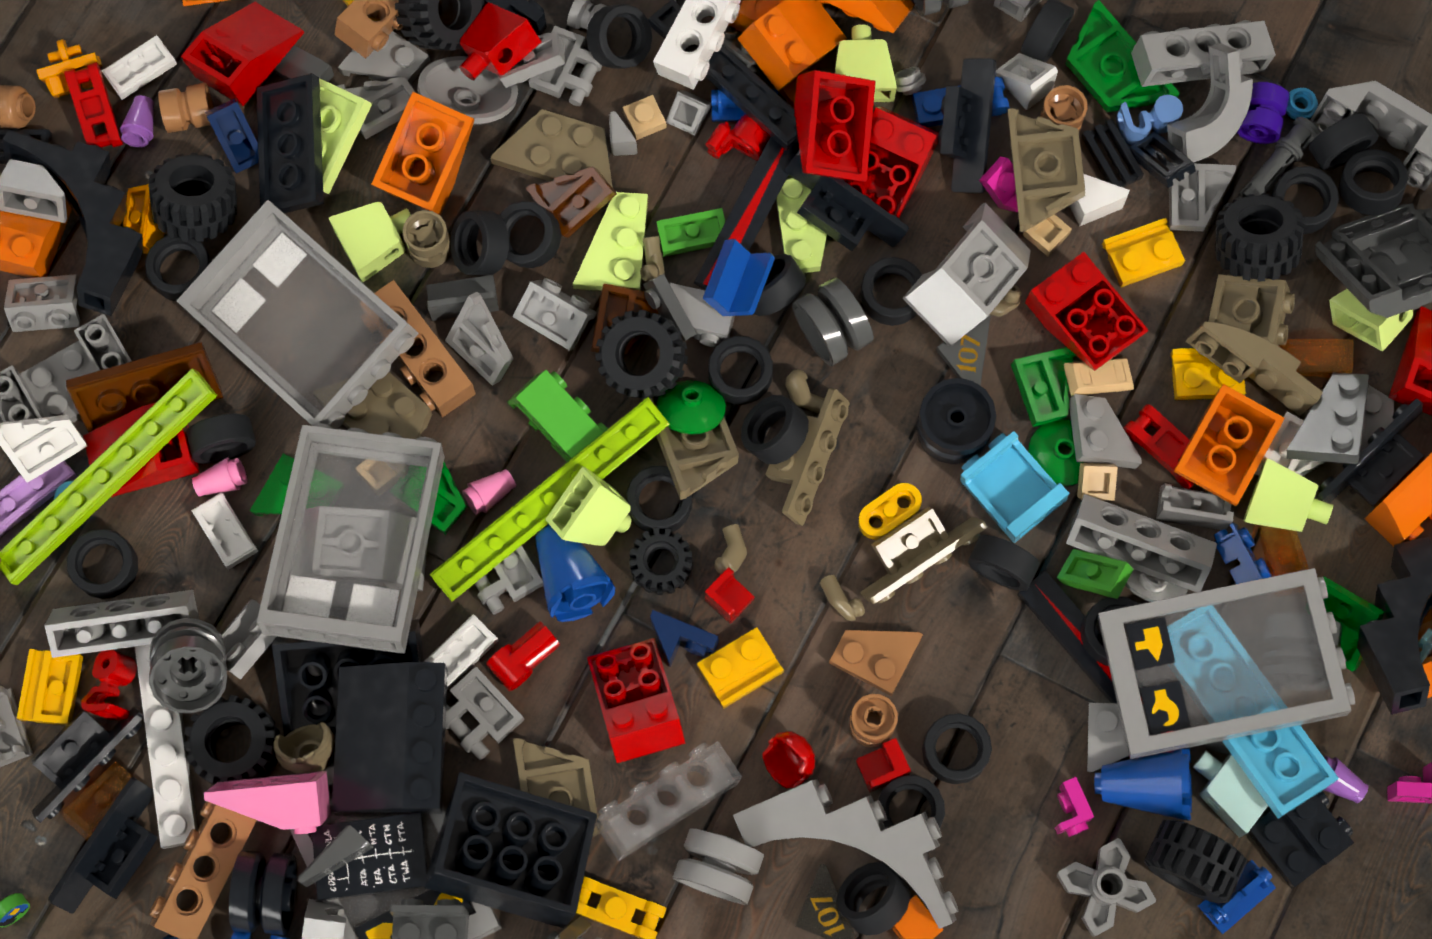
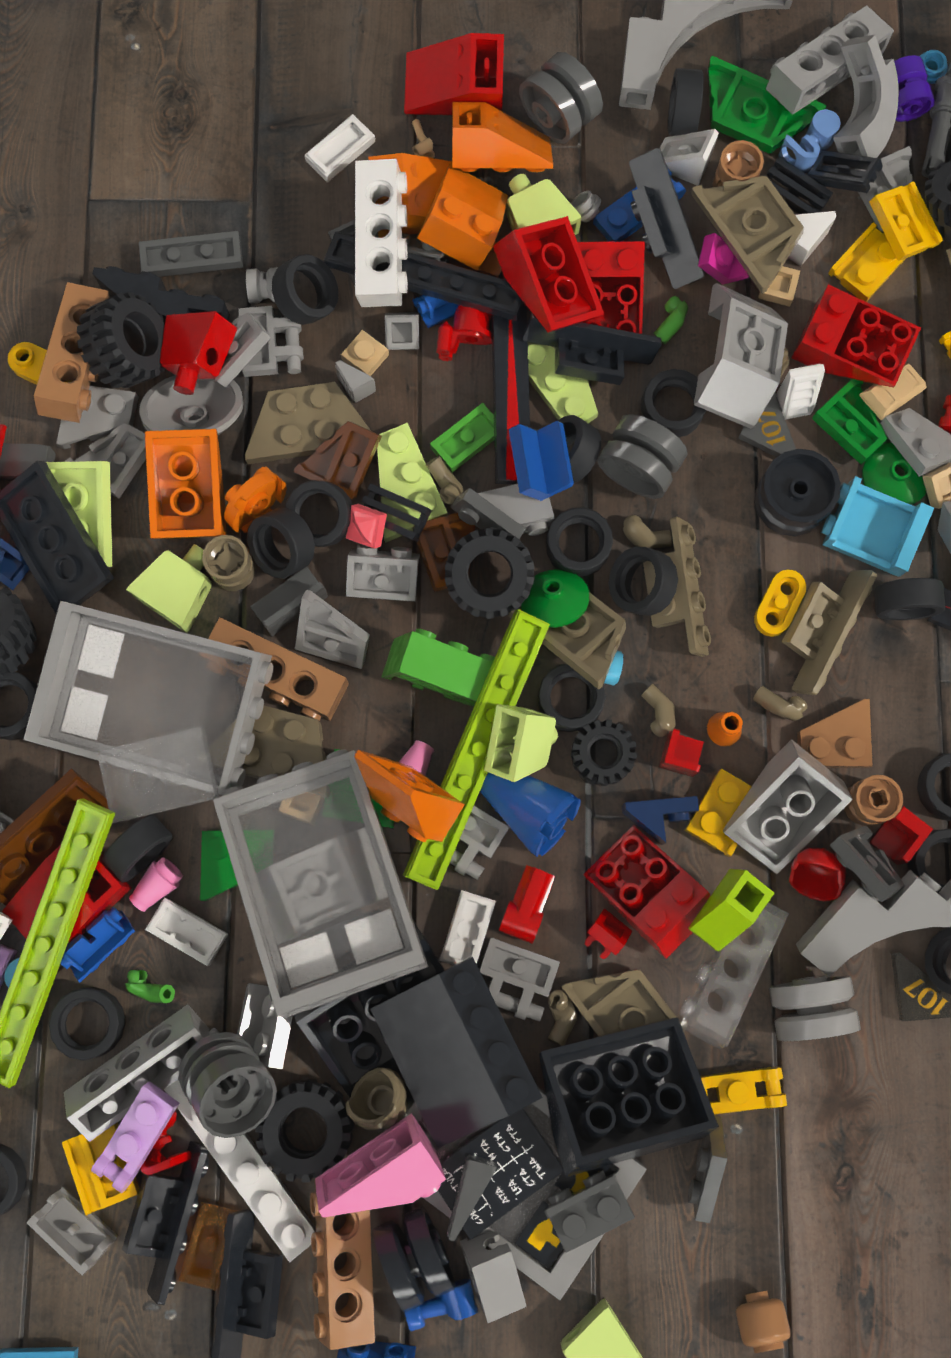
camera: 30 degrees left, 5 degrees up
(91, 671) = (136, 1136): none -> lavender plate
(161, 497) = (108, 932): none -> blue hinge
(166, 564) = (151, 992): none -> bright green arm
(269, 383) = (158, 774): none -> clear tile
(466, 504) = (409, 797): none -> orange slope
(477, 193) = (253, 498): none -> orange plate
(504, 763) = (564, 1017): none -> dark tan arm
(561, 264) = (366, 526): none -> coral tile
(577, 247) = (420, 523): none -> black tile
(579, 714) = (609, 933): none -> red tile
(687, 741) = (731, 908): none -> lime slope
(708, 492) = (615, 669): none -> medium azure tile
(779, 602) = (719, 733): none -> orange cone
(793, 687) = (787, 807): none -> light grey slope
(833, 766) = (872, 868): none -> dark grey wing
(933, 219) = (678, 312): none -> bright green arm
(1007, 334) = (800, 391): none -> white slope
(1190, 230) = (905, 221): none -> yellow plate

